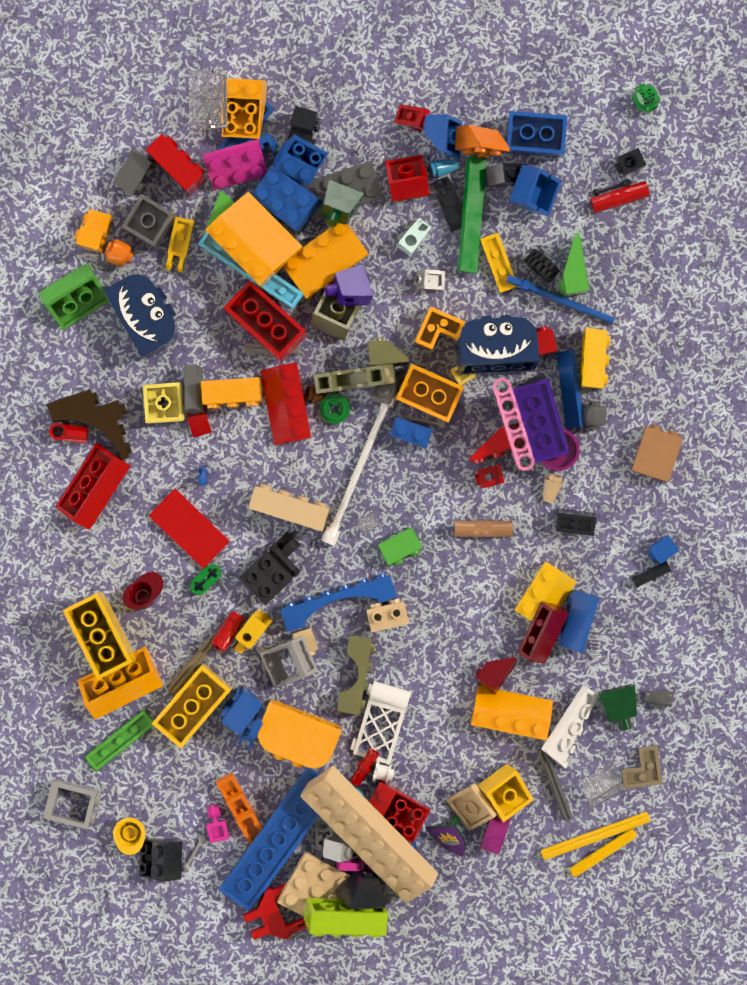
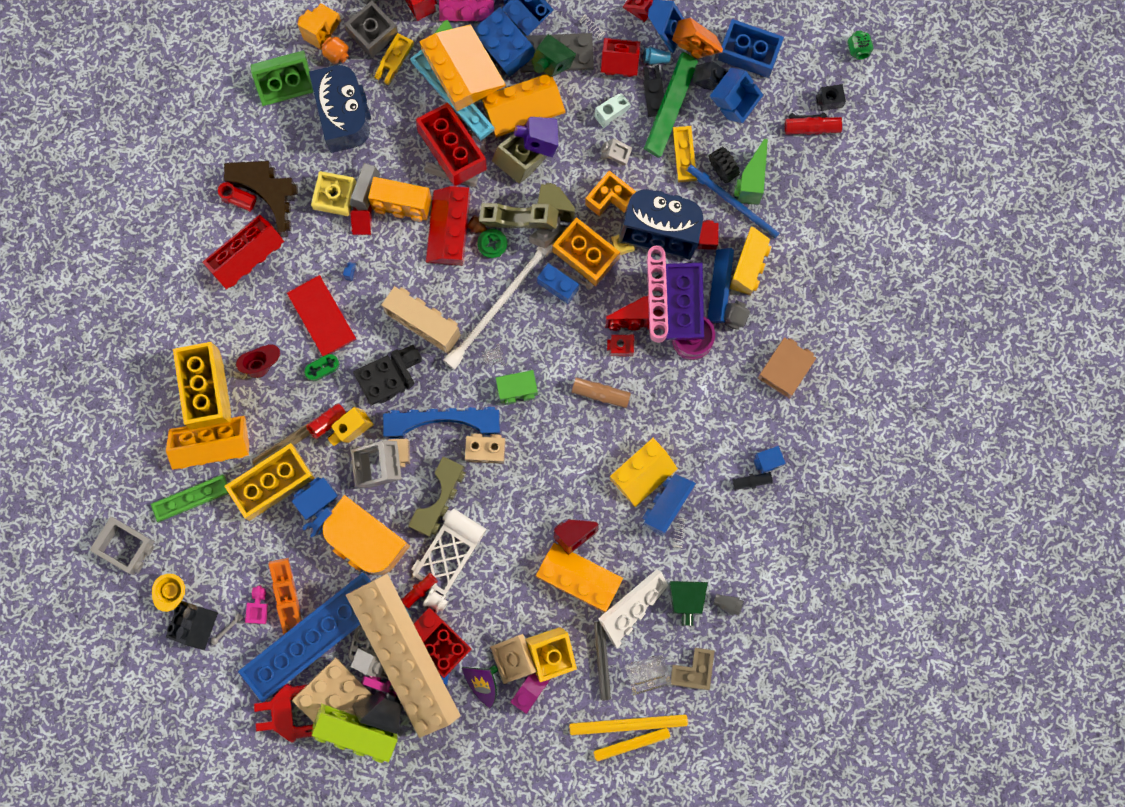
camera: 15 degrees right, 10 degrees down
(543, 632) = (631, 505): dark red brick -> none
(551, 487) = (678, 372): tan cone -> none
(575, 522) = (692, 410): black hinge -> none

